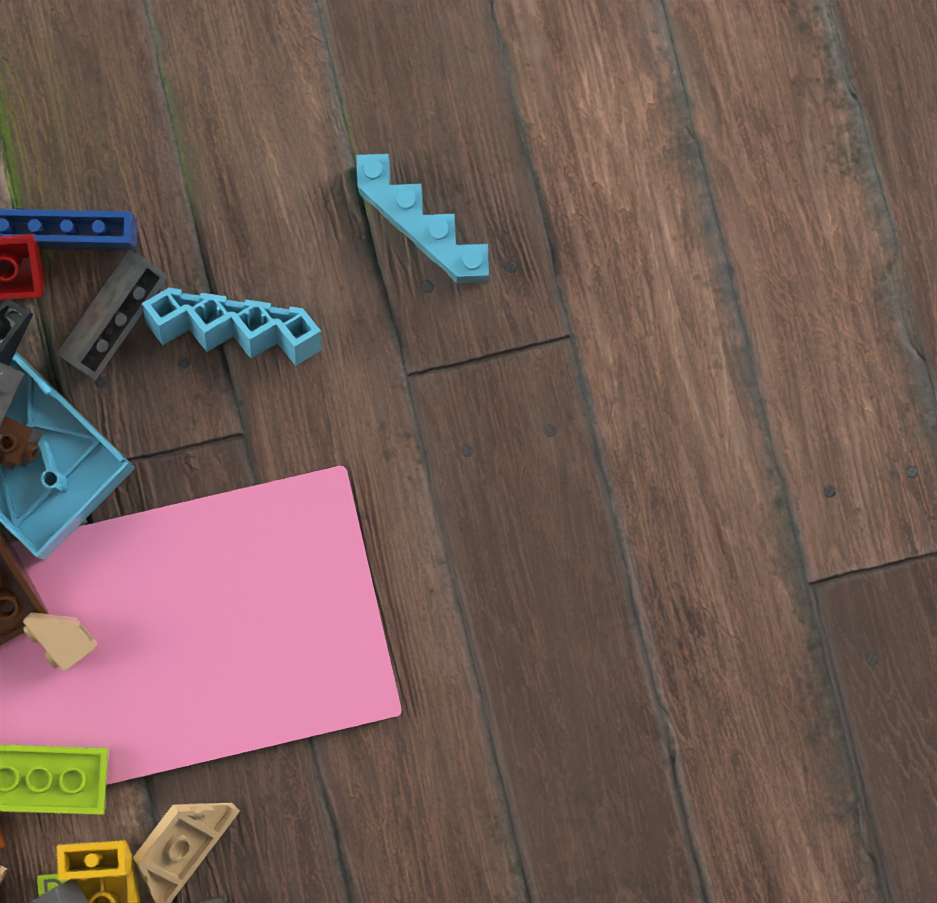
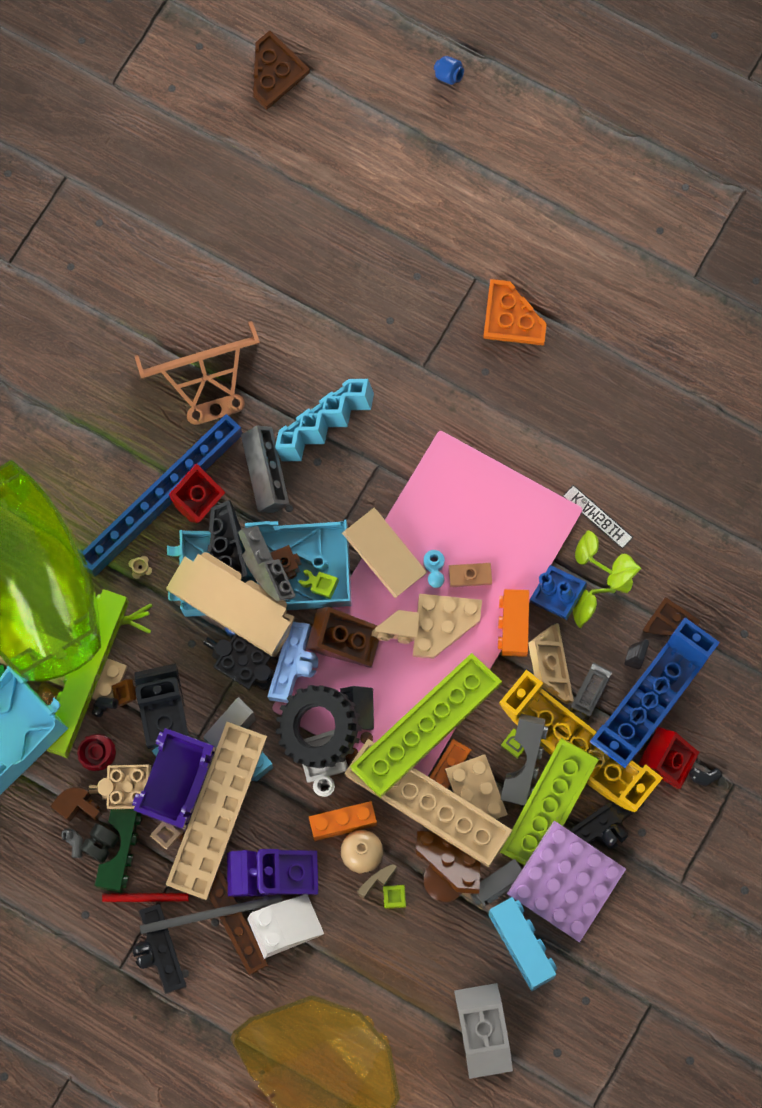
camera: 45 degrees left, 10 degrees down
(31, 506) = (321, 584): none -> lime plate
(113, 182) = (229, 404): none -> nougat piece
(117, 681) = (443, 622): none -> tan plate
(132, 542) = (384, 552): none -> tan tile
(160, 626) = (435, 578): none -> medium azure plate
(187, 764) = (514, 622): none -> orange brick
(202, 660) = (470, 574): none -> medium nougat plate
(273, 779) = (558, 592): none -> blue plate
(349, 838) = (619, 579): none -> lime plant
(411, 738) = (598, 517): none -> clear sticker
(430, 233) = (368, 295): medium azure brick -> none
(559, 419) = (511, 316): none -> orange plate
(795, 69) = (449, 70): none -> blue head

